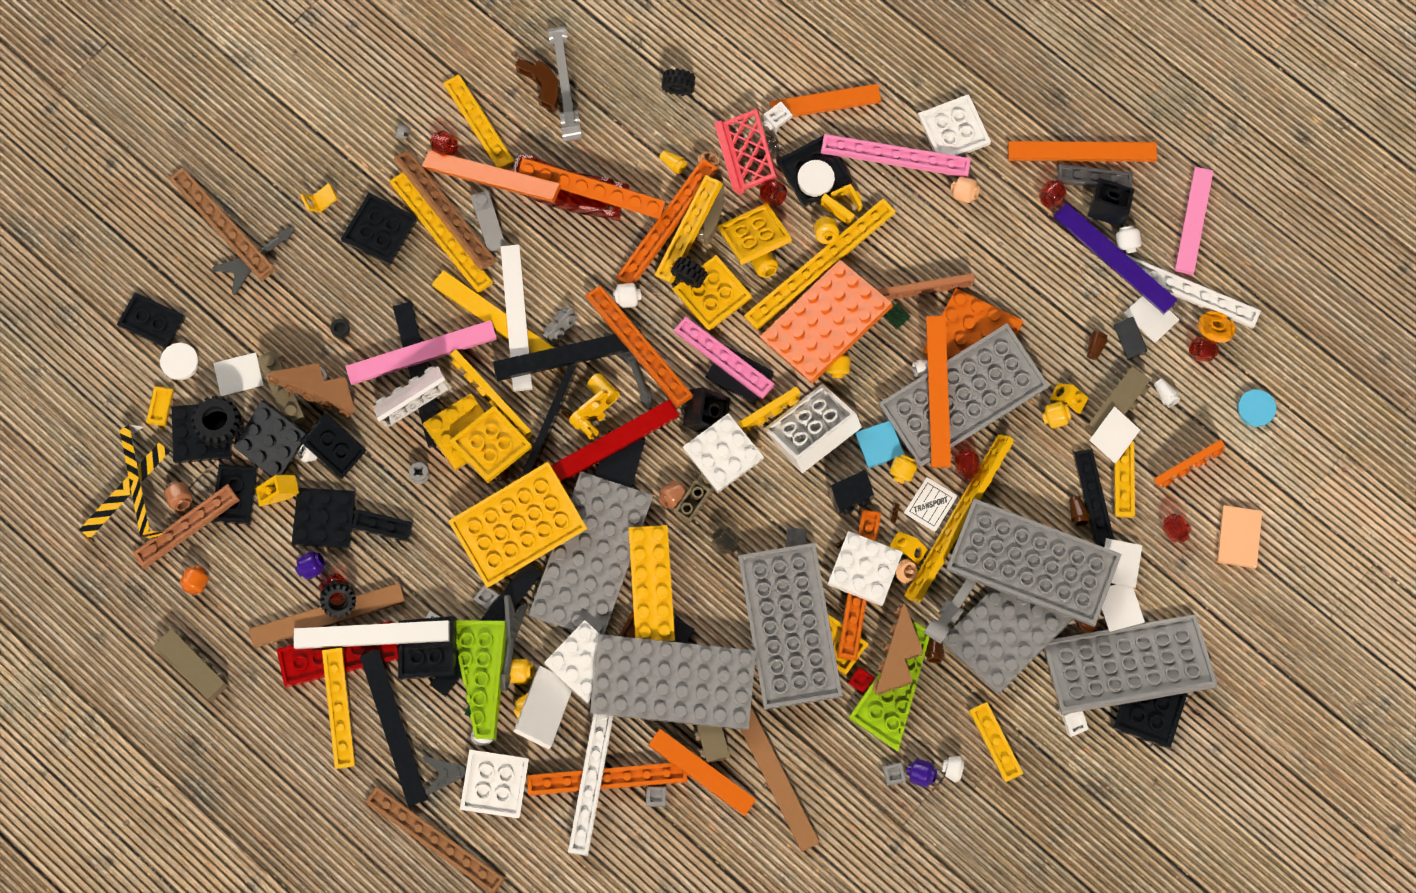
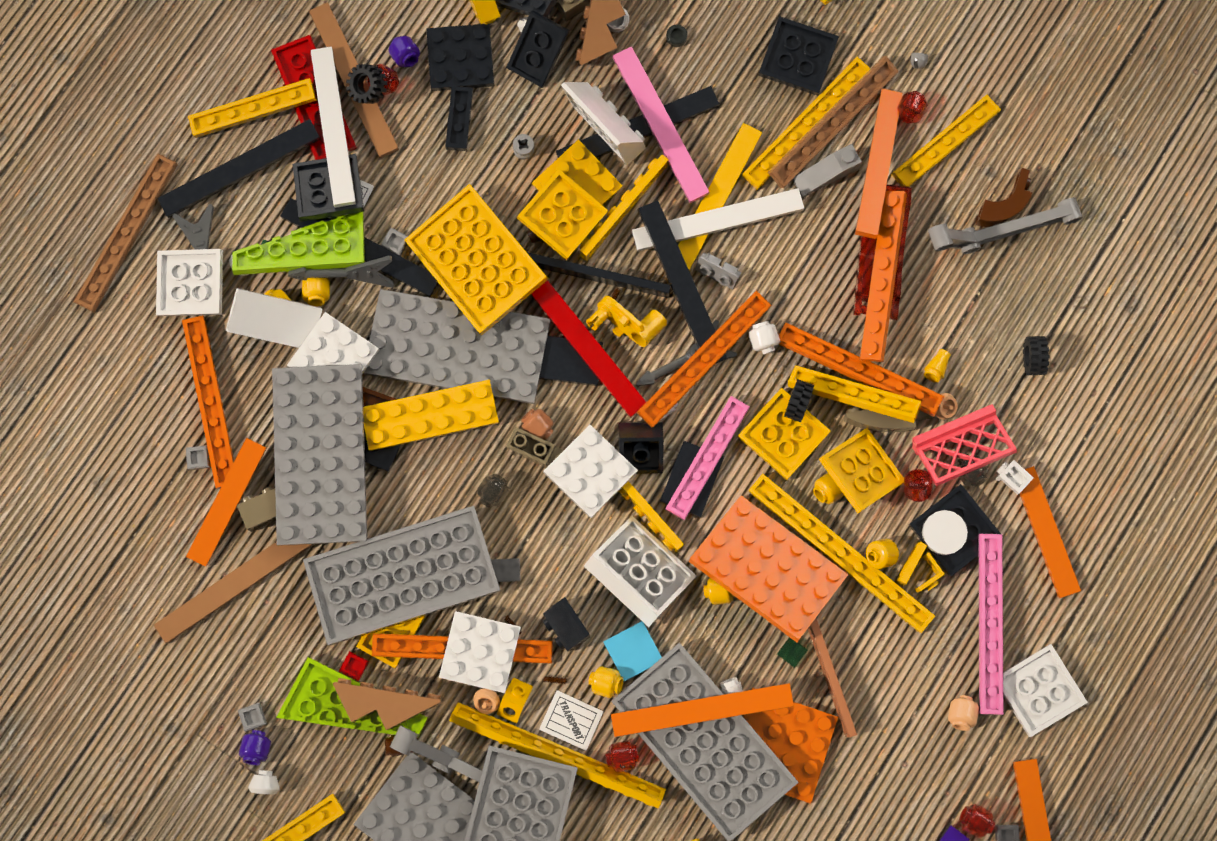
camera: 80 degrees right, 5 degrees up
(590, 784) = (197, 384): white tile -> none

